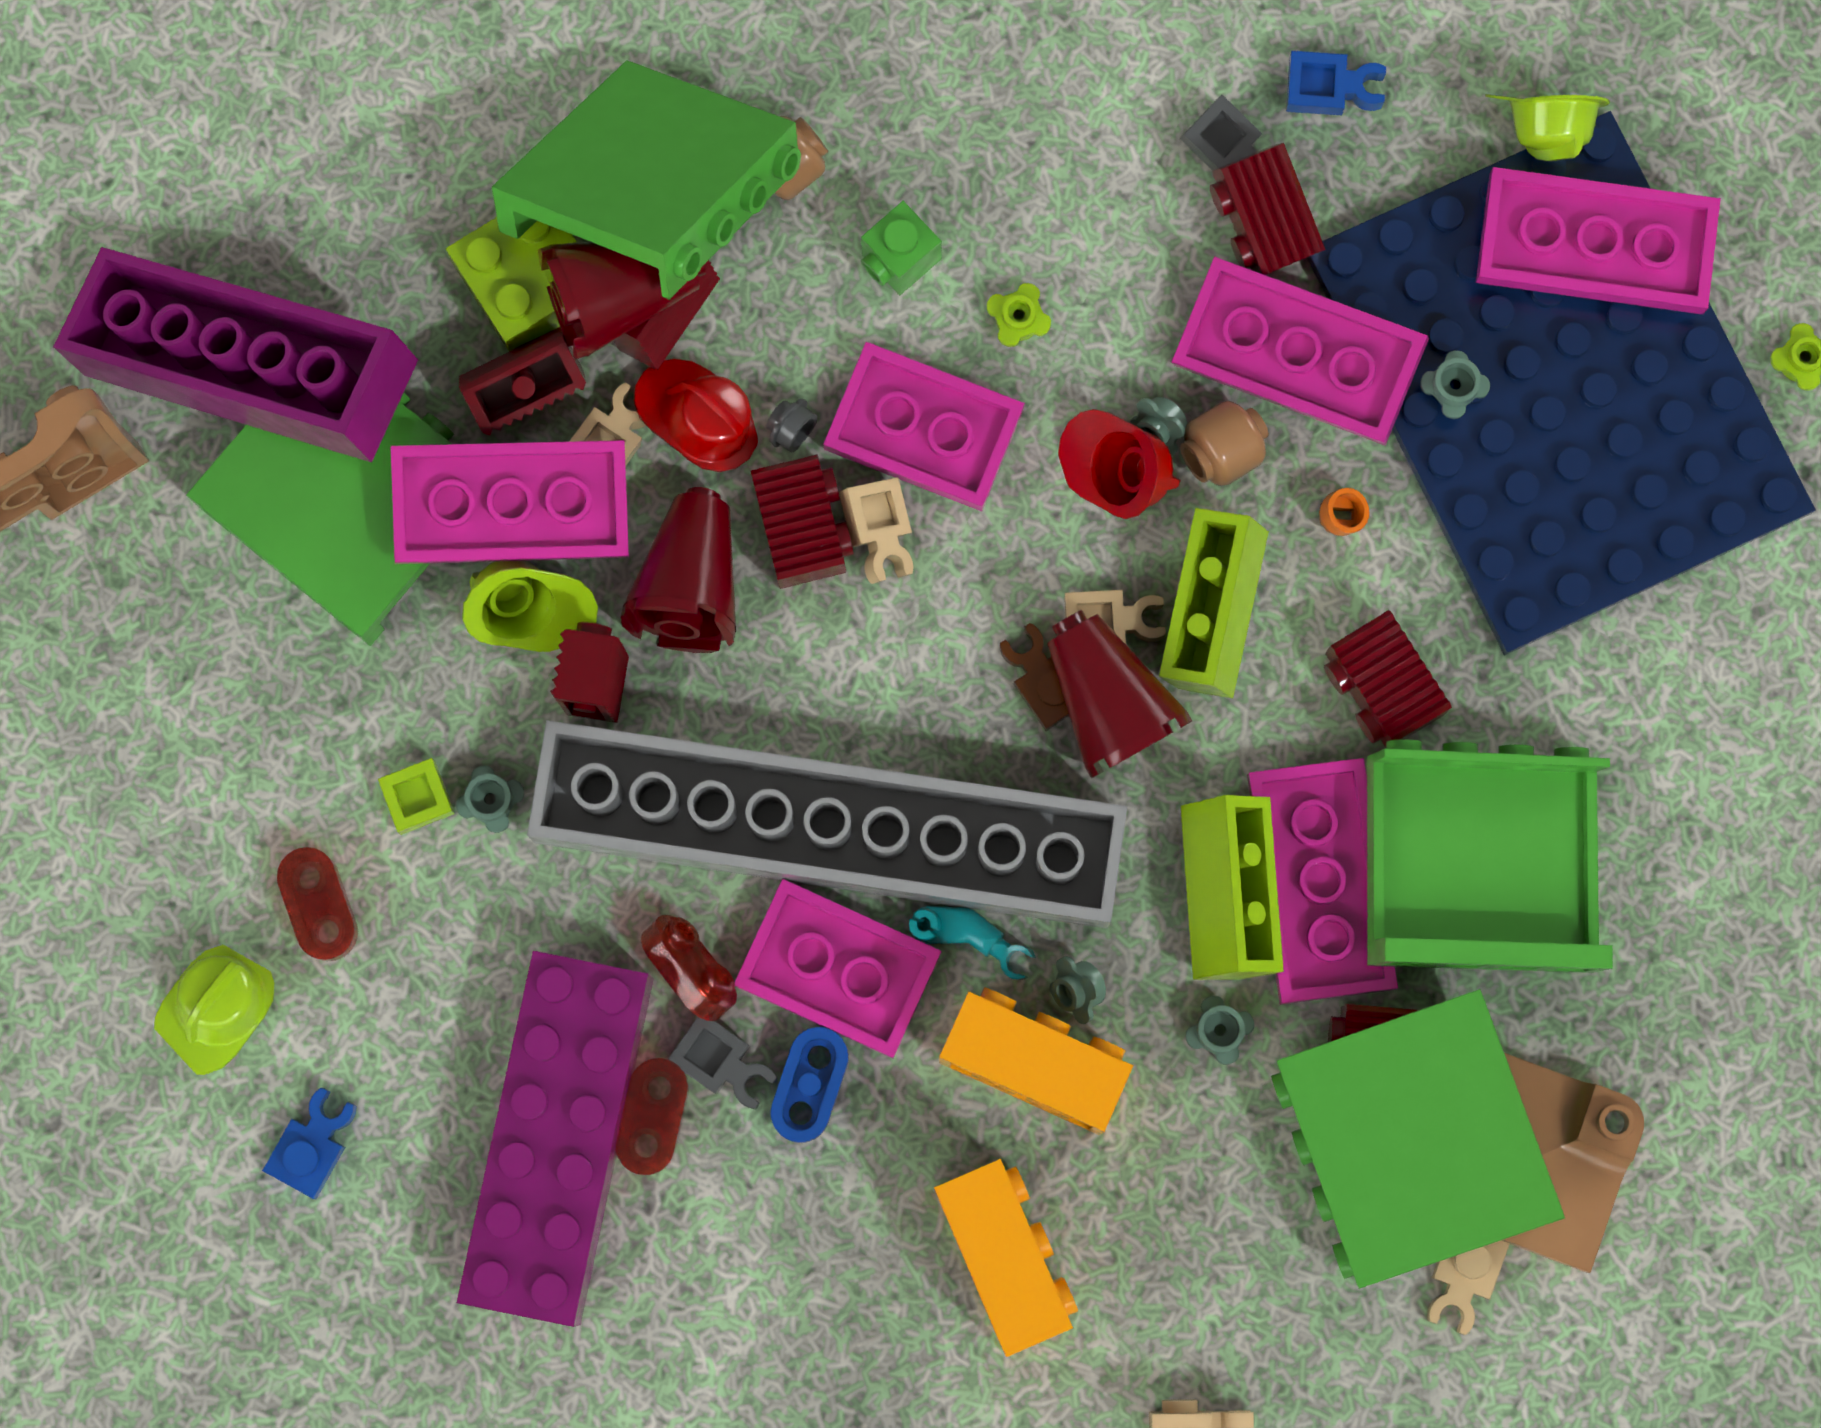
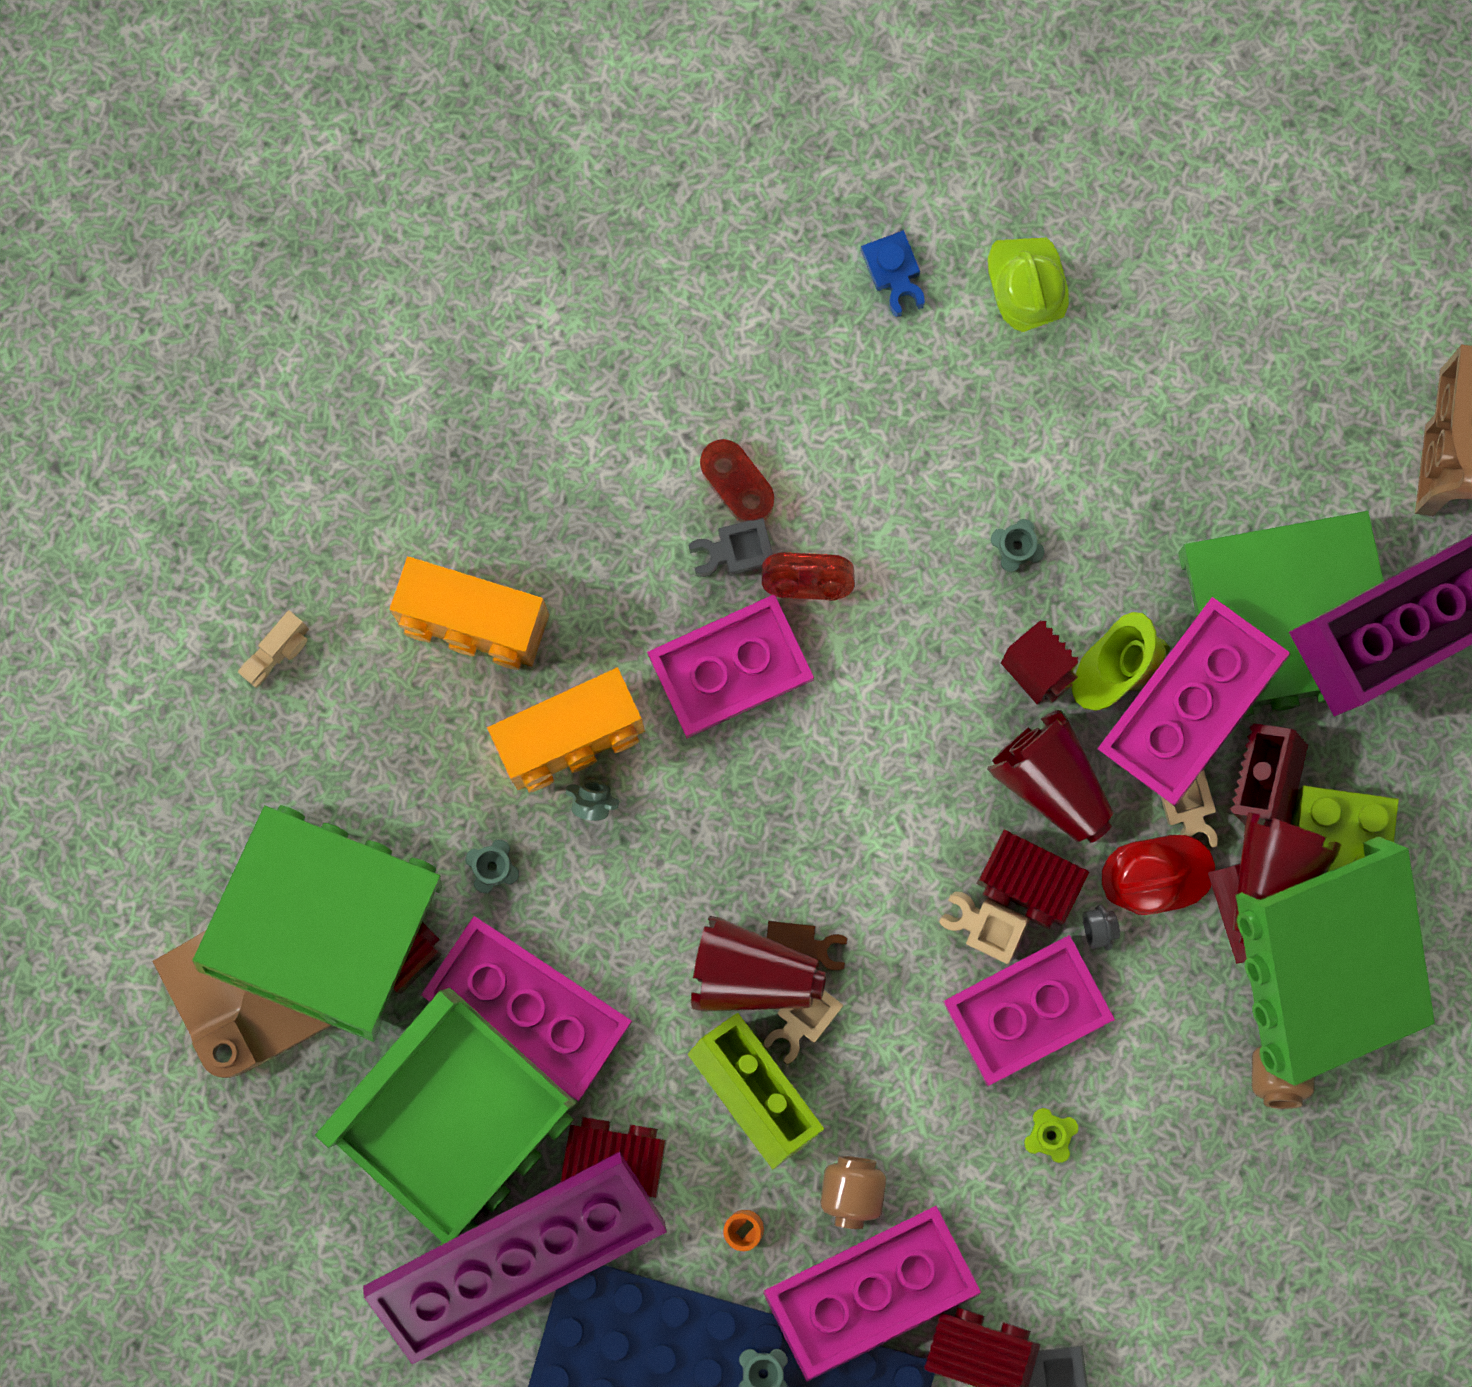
camera: 130 degrees right, 0 degrees up
(316, 906) = (1040, 385): clear red plate -> none
(416, 796) = (1056, 501): lime plate -> none
(555, 1139) = (773, 412): magenta brick -> none
(810, 1085) = (675, 591): blue plate -> none
(827, 824) = (821, 731): light grey brick -> none
(900, 249) = (1158, 1092): bright green brick -> none
(965, 925) = (688, 767): teal arm -> none
(1115, 463) = (898, 1108): red piece -> none
(1161, 419) = (901, 1161): sand green plate -> none
(1231, 888) = (568, 944): lime brick -> none
(1467, 1275) = (214, 878): tan plate -> none
(1556, 687) = (515, 1258): none -> magenta plate

